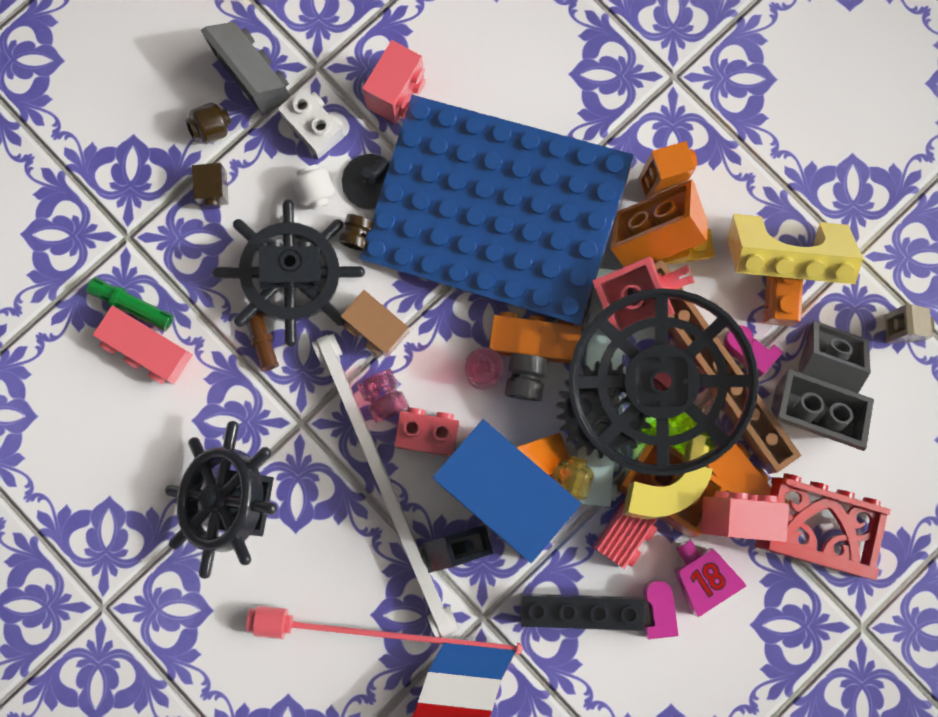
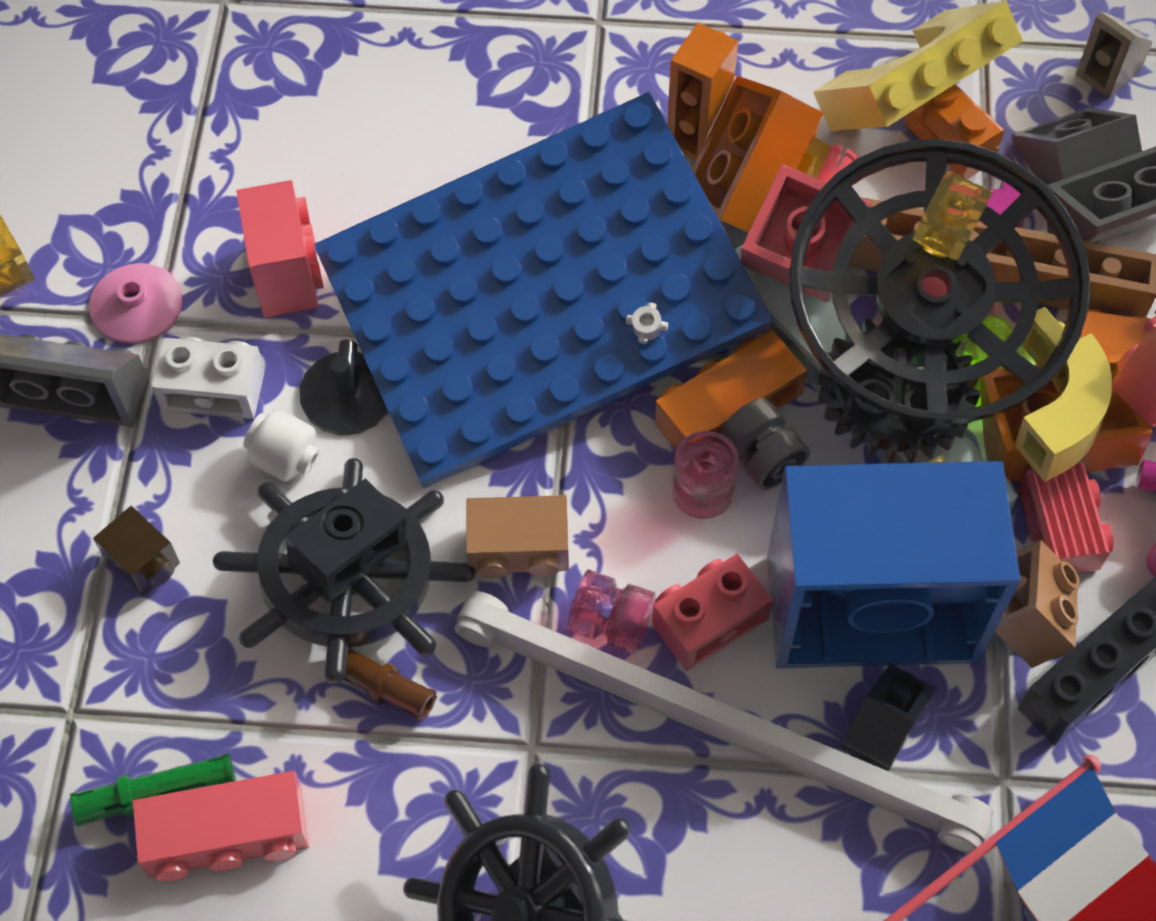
camera: 40 degrees left, 20 degrees down
(208, 123) = (67, 481): dark brown head -> none
(321, 60) = (141, 316): none -> bright pink dish
(356, 232) = (387, 454): dark brown wheel -> none
(518, 276) = (647, 323): none -> white piece
(565, 562) = (1043, 608): none -> medium nougat brick
(690, 362) = (951, 216): none -> clear yellow brick

